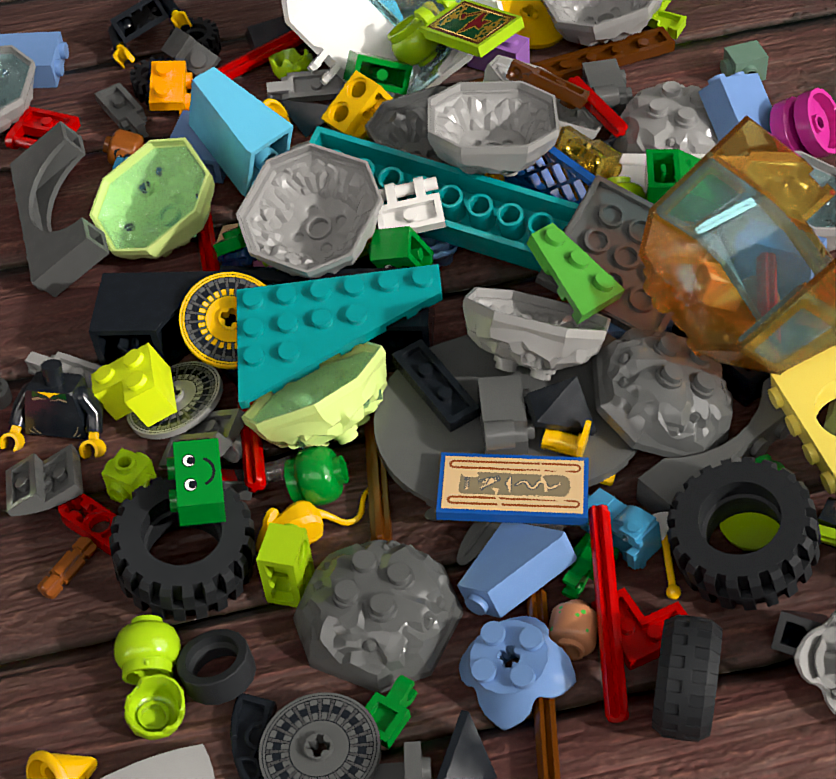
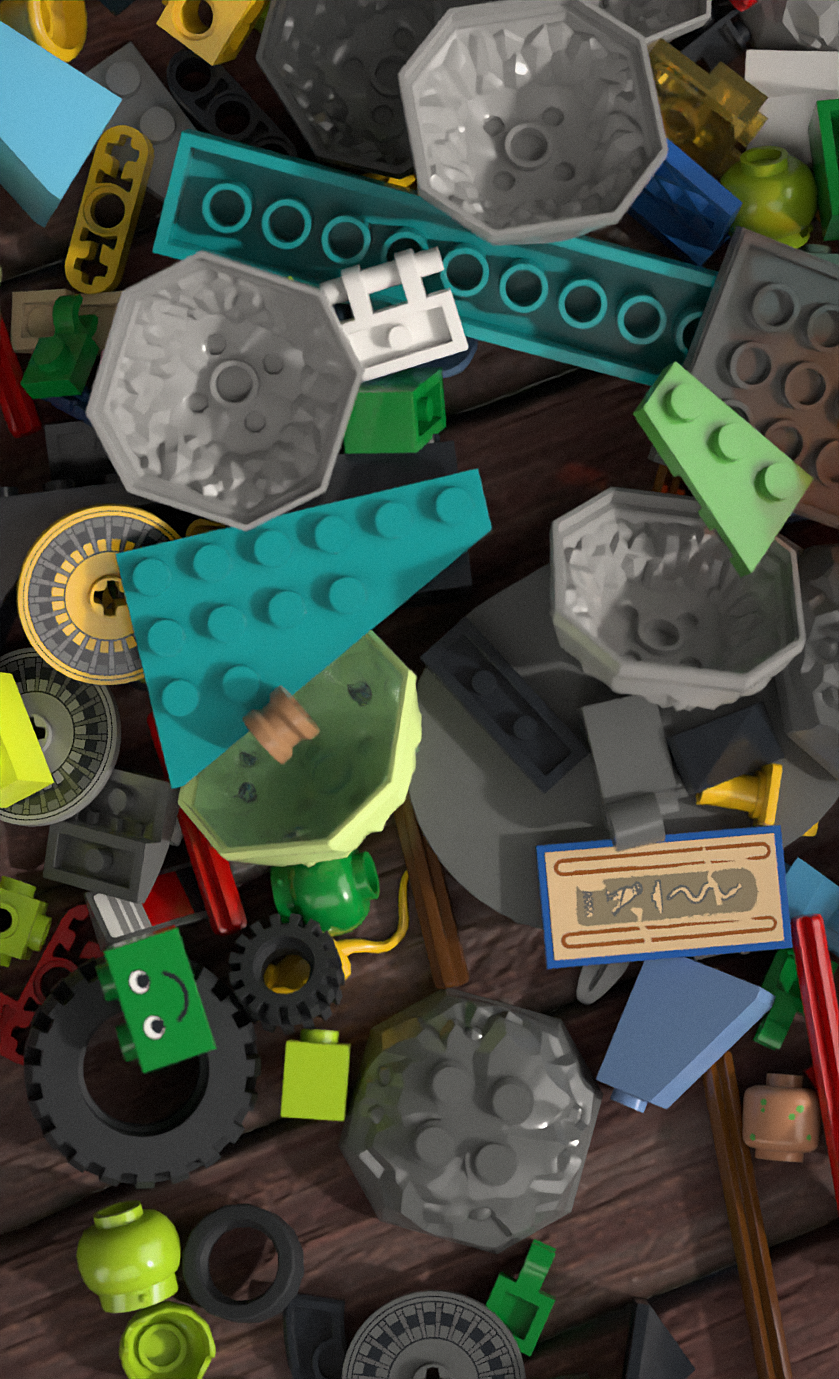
camera: 15 degrees left, 35 degrees up
(280, 499) = (276, 941): none -> black tyre
(305, 365) = (281, 724): none -> medium nougat wheel
(509, 692) = (714, 1160): medium blue brick -> none

